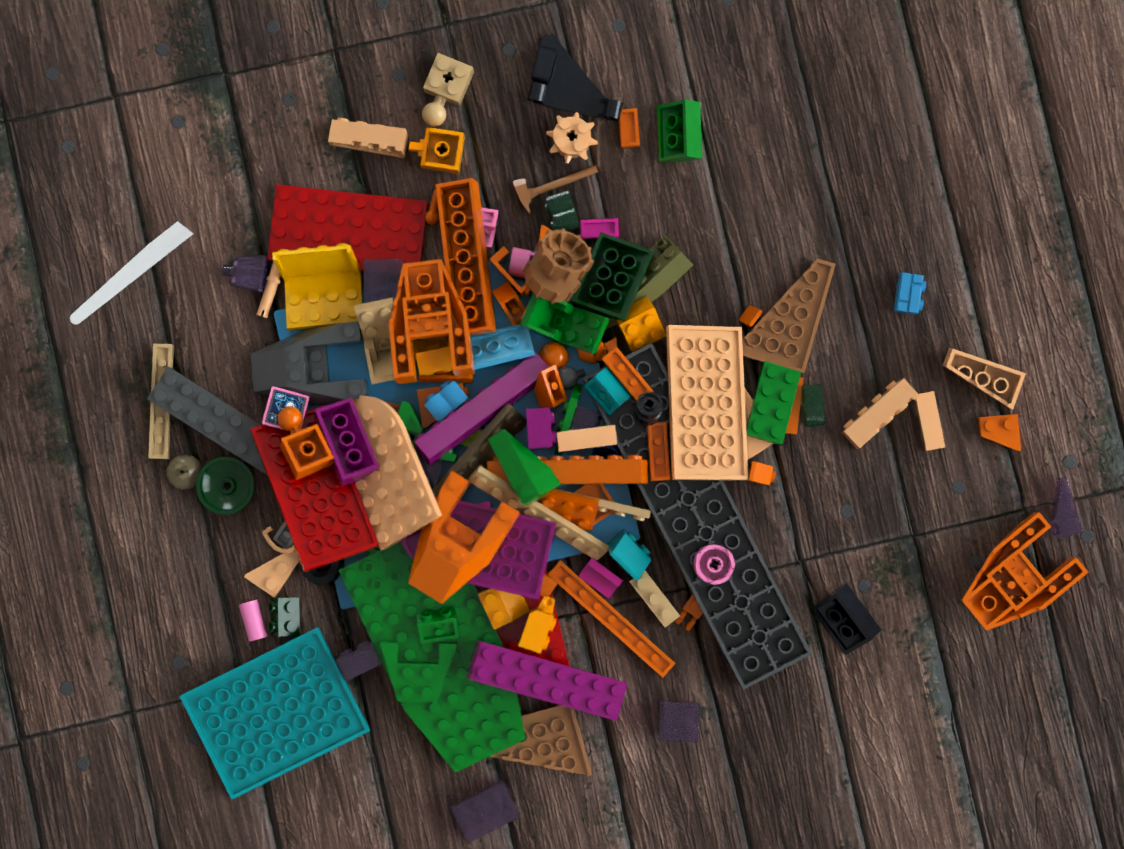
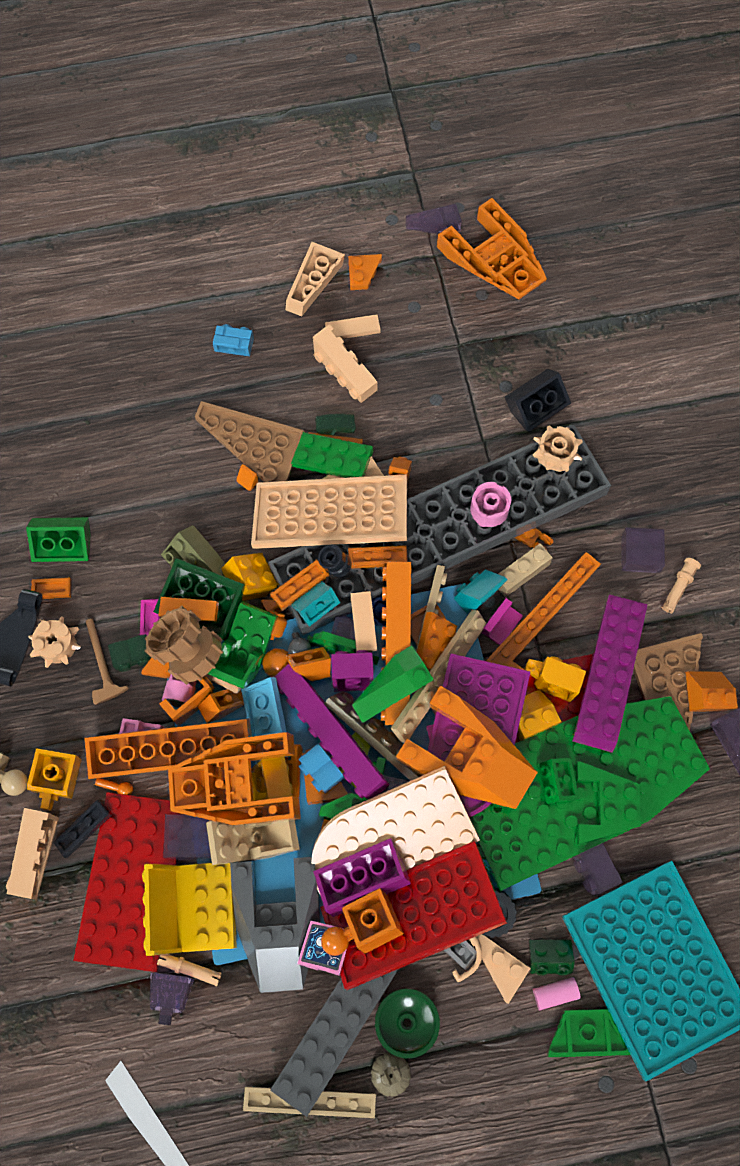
camera: 90 degrees left, 15 degrees down
(217, 646) = (587, 1034): none -> green wing
(393, 182) = (82, 828): none -> black tile
(531, 778) = (710, 692): none -> orange slope
(601, 267) = (204, 609): none -> orange tile
(650, 762) = (684, 577): none -> light nougat pin
(766, 637) = (557, 448): none -> light nougat brick

